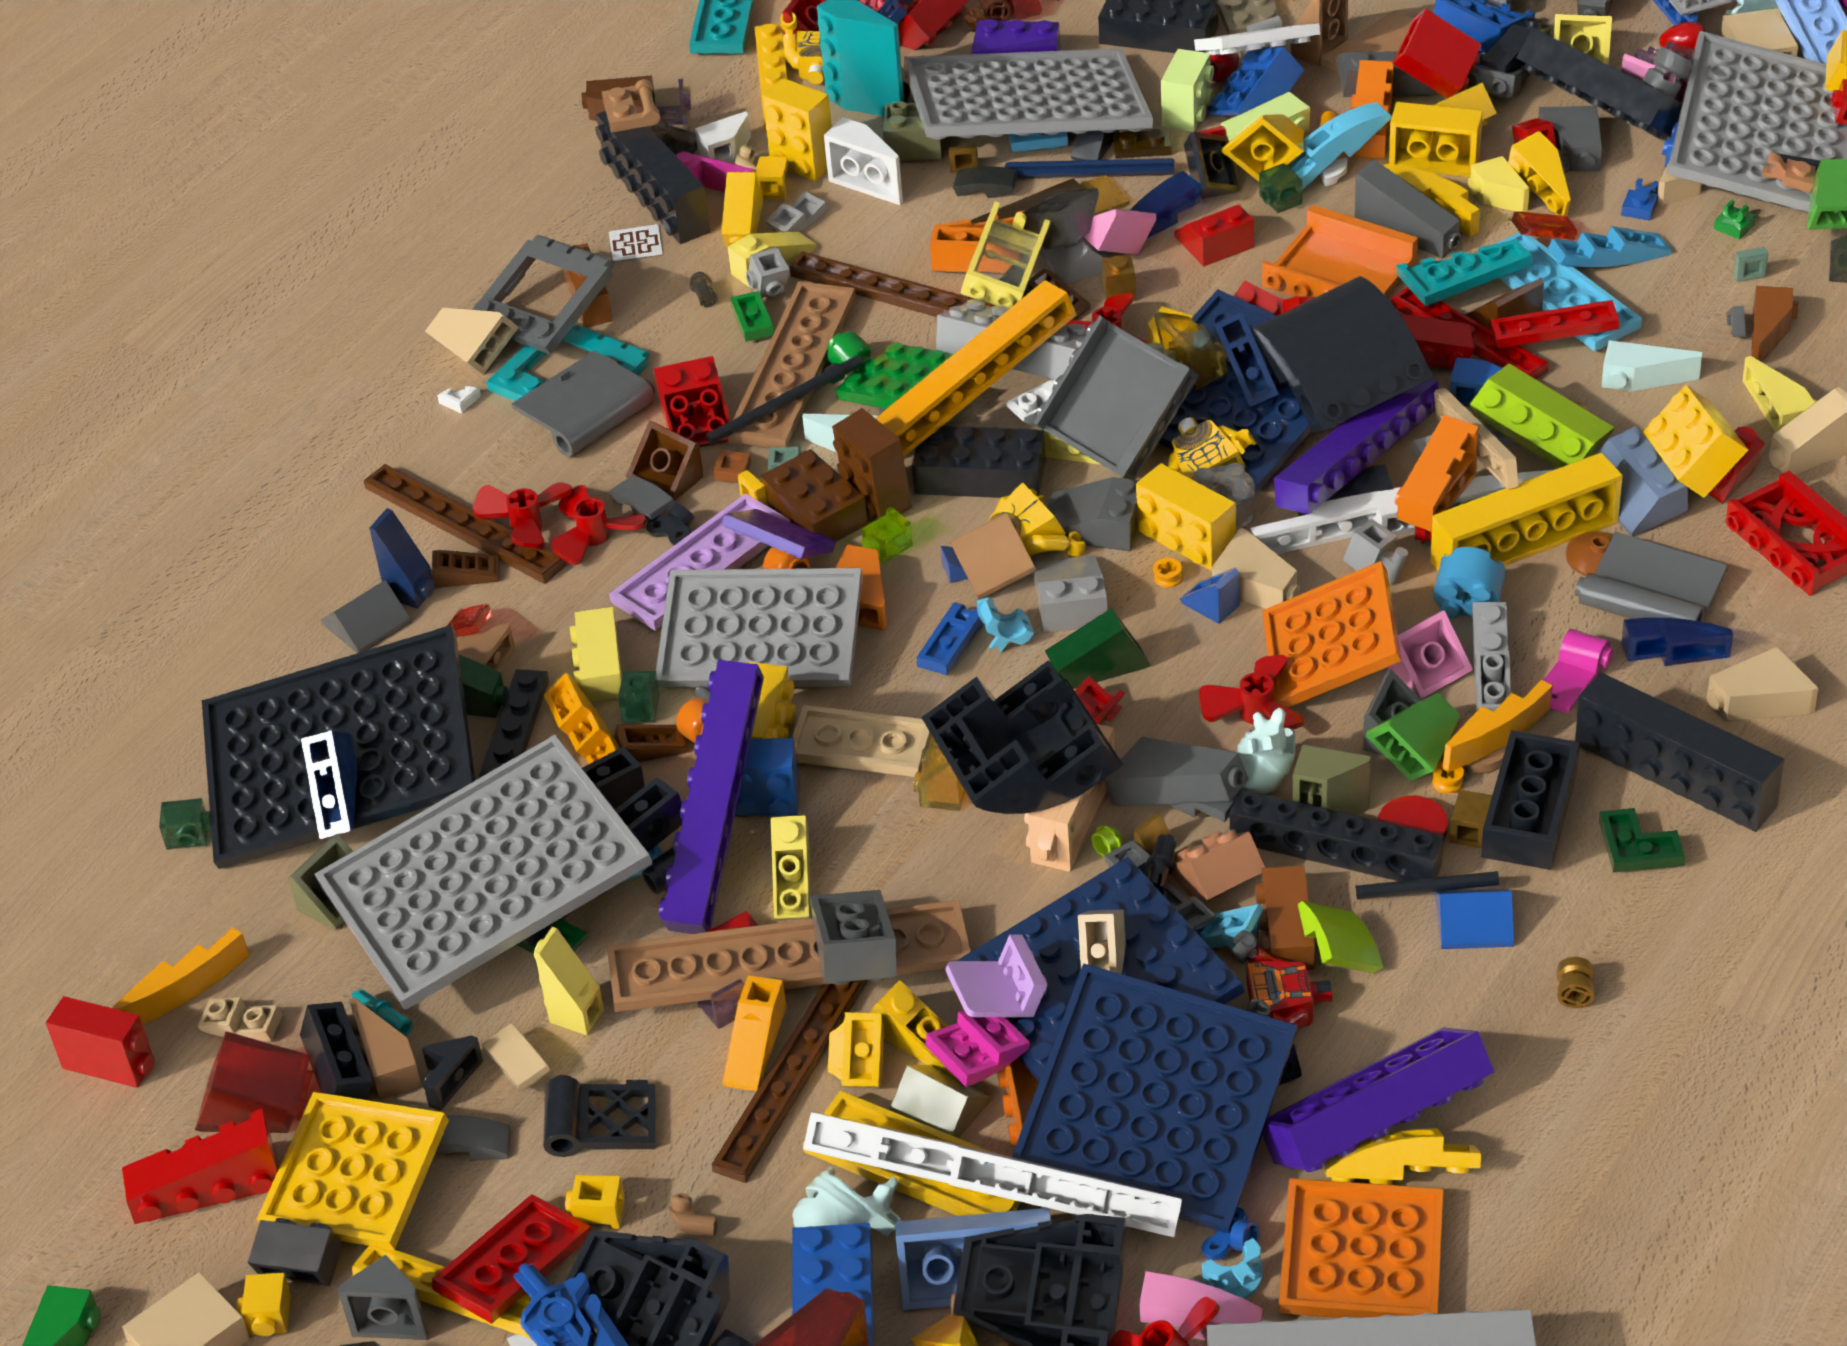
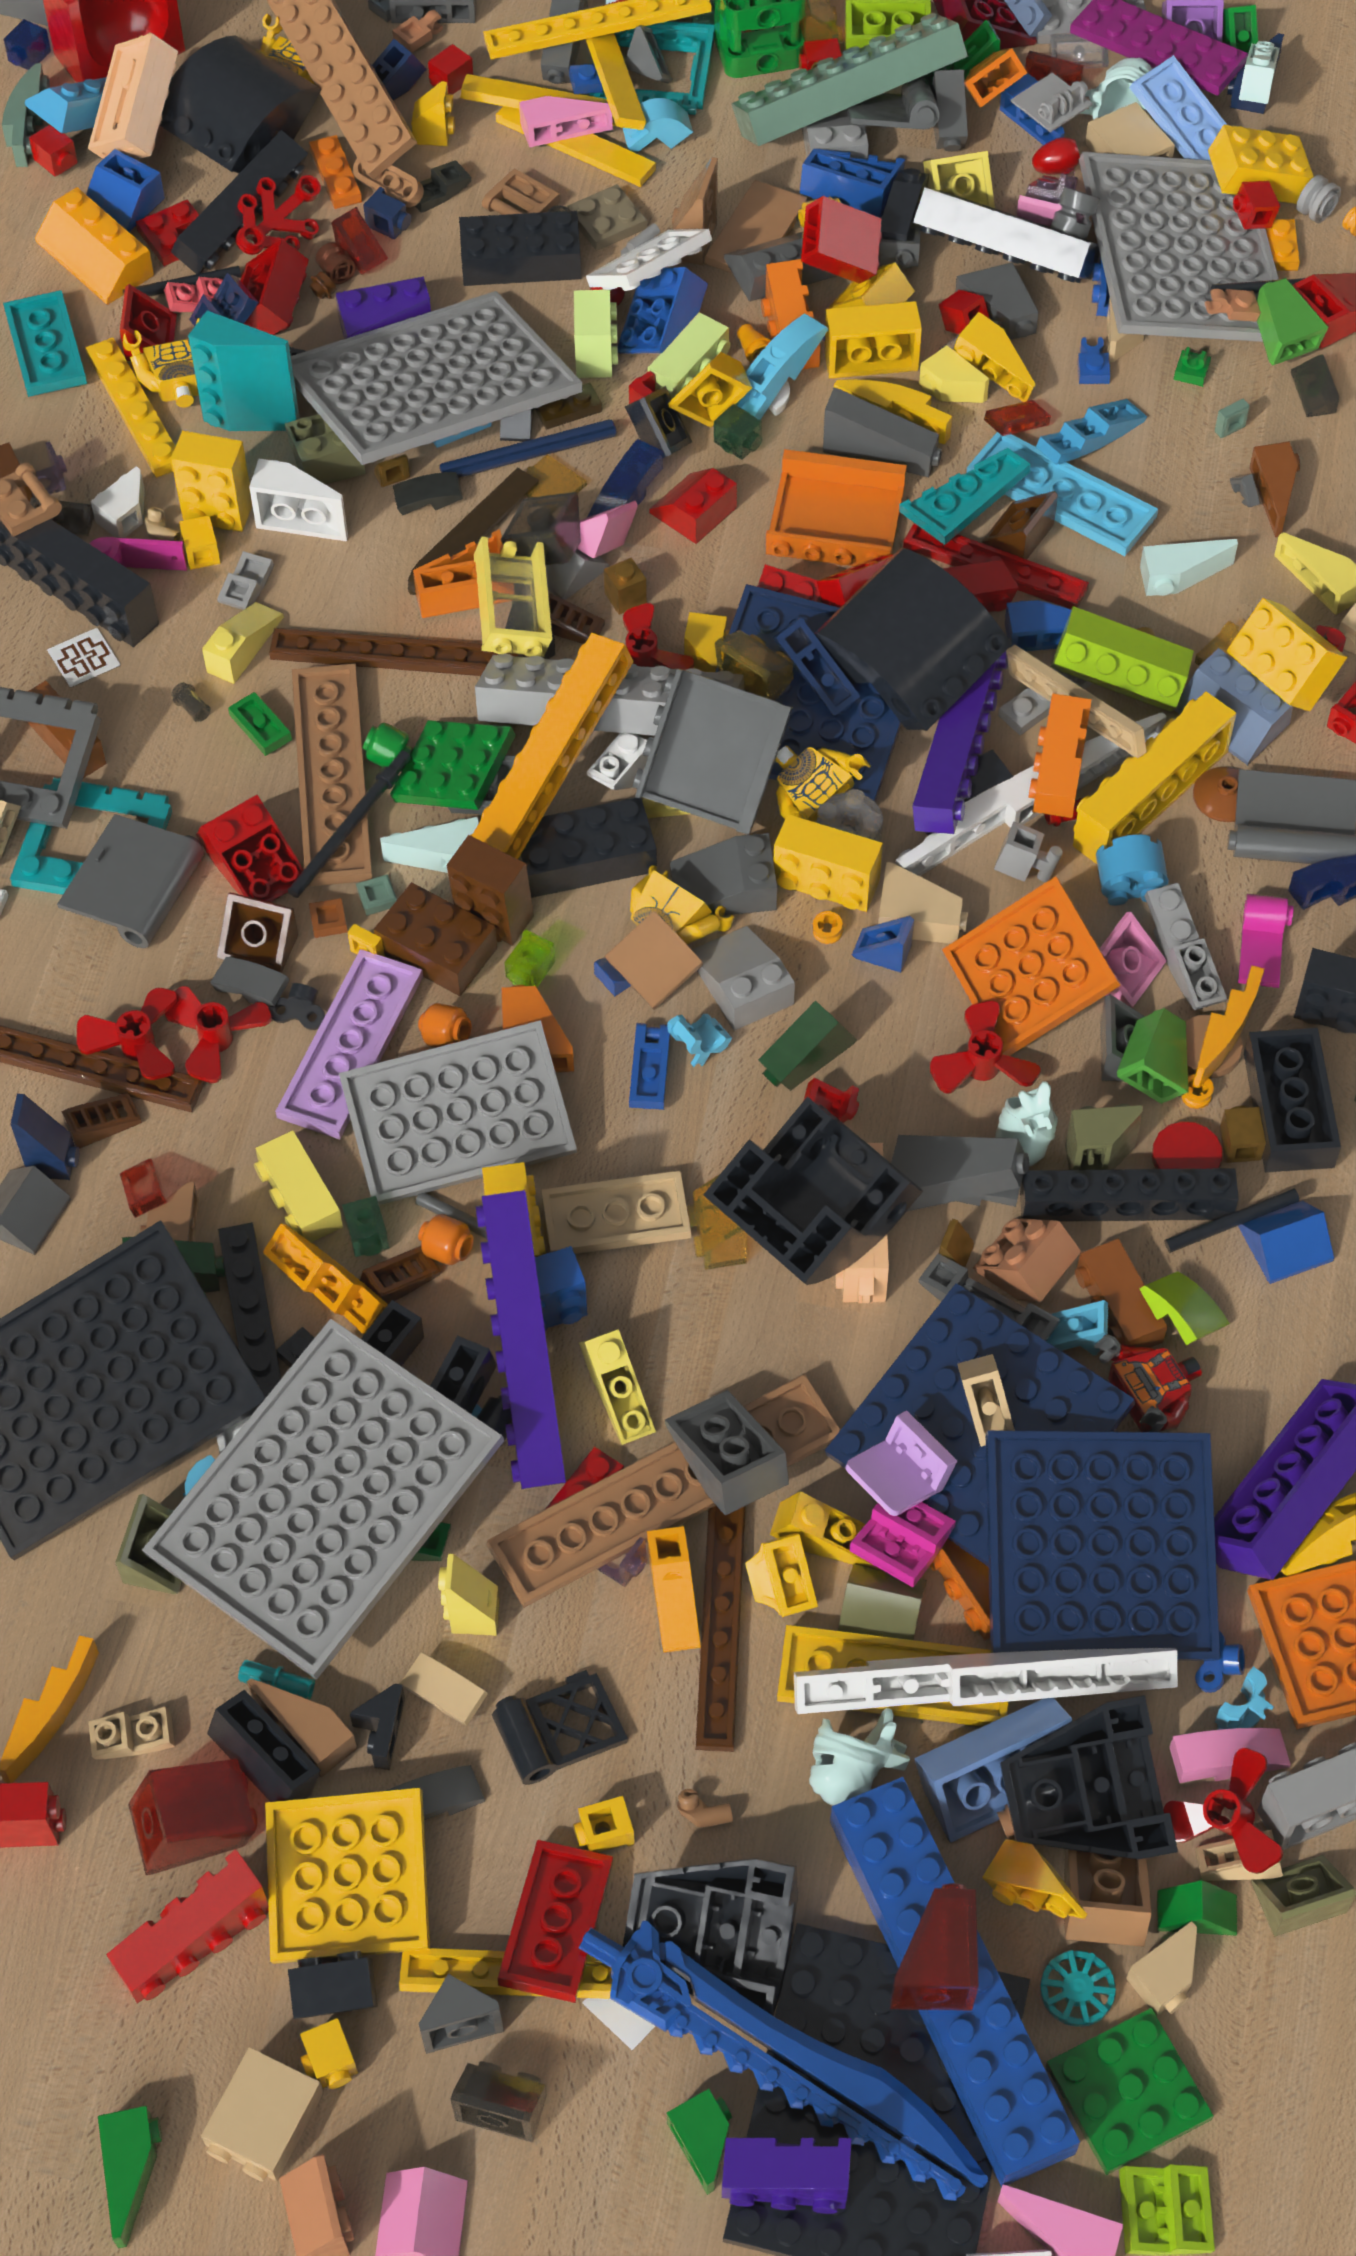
camera: 25 degrees left, 15 degrees up
(332, 781) = (114, 1440): dark blue slope -> none
(741, 206) = (190, 596): yellow slope -> none
(768, 273) = (257, 669): light grey brick -> none
(778, 533) = (428, 995): tile -> none
(1106, 839) = (910, 1259): lime plate -> none
(1160, 862) = (978, 1274): black axle -> none
(1555, 324) = (1083, 539): red plate -> none

